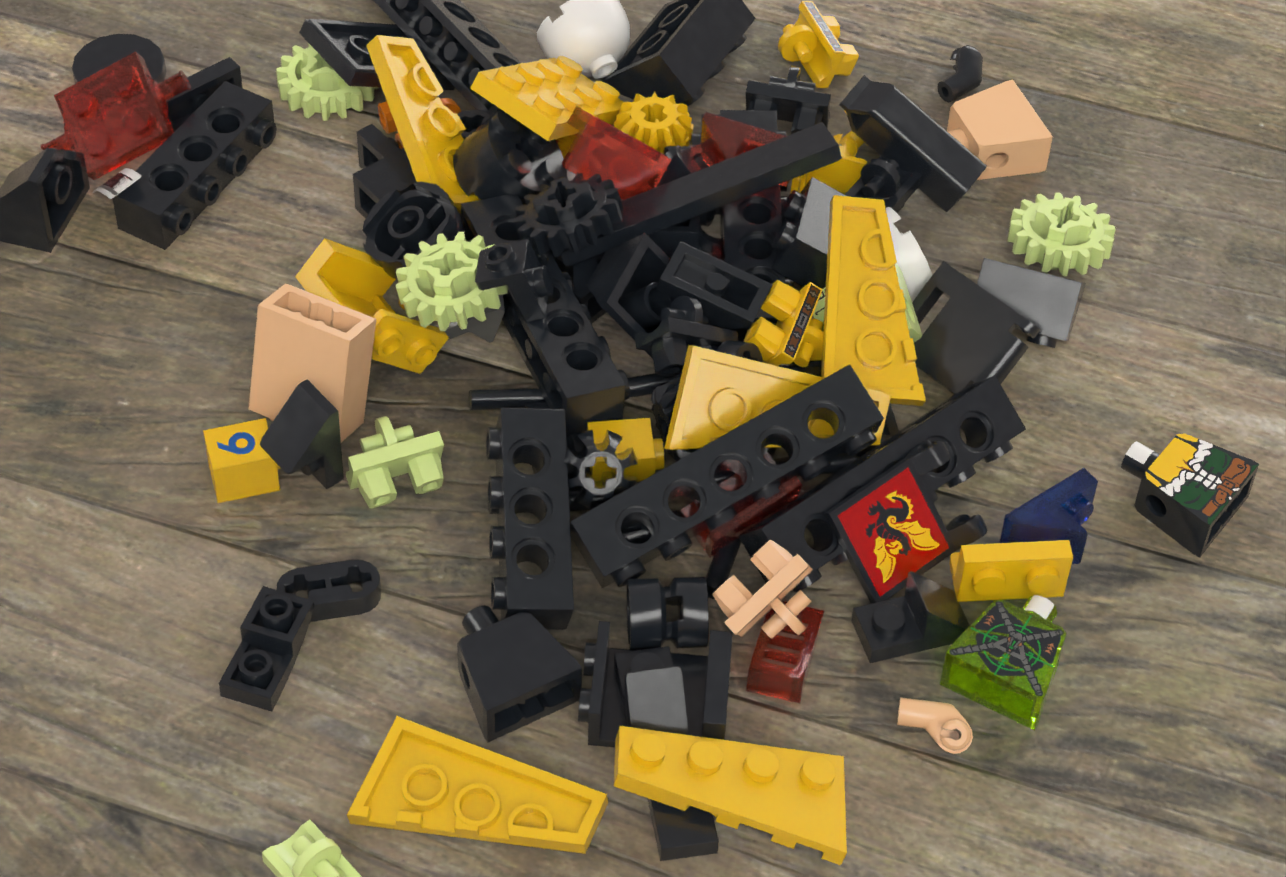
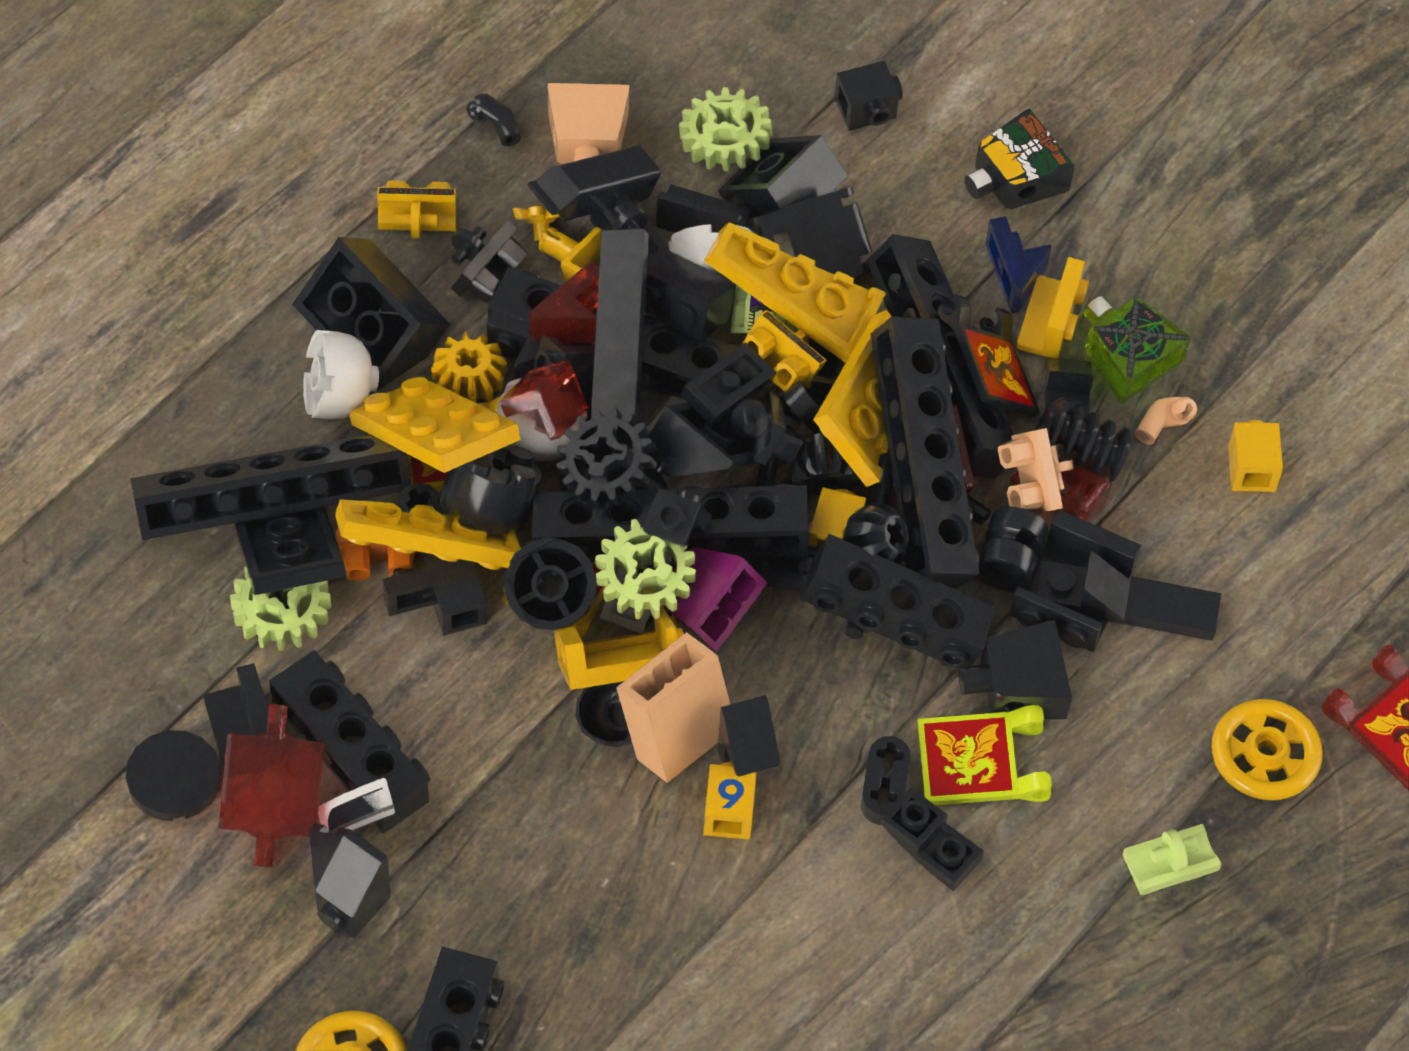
camera: 70 degrees left, 10 degrees up
(391, 663) = (975, 757): none -> flag
(393, 454) = (775, 678): yellowish green hips -> none
(465, 791) = (1115, 747): yellow wing -> none
(478, 364) = (718, 597): none -> magenta torso
(766, 787) = (1183, 559): yellow wing -> none
(844, 635) = (1086, 437): none -> black piece
(928, 822) = (1255, 456): none -> yellow brick
(947, 239) = (686, 209): none -> black panel
(1187, 335) = (867, 95): none -> black brick

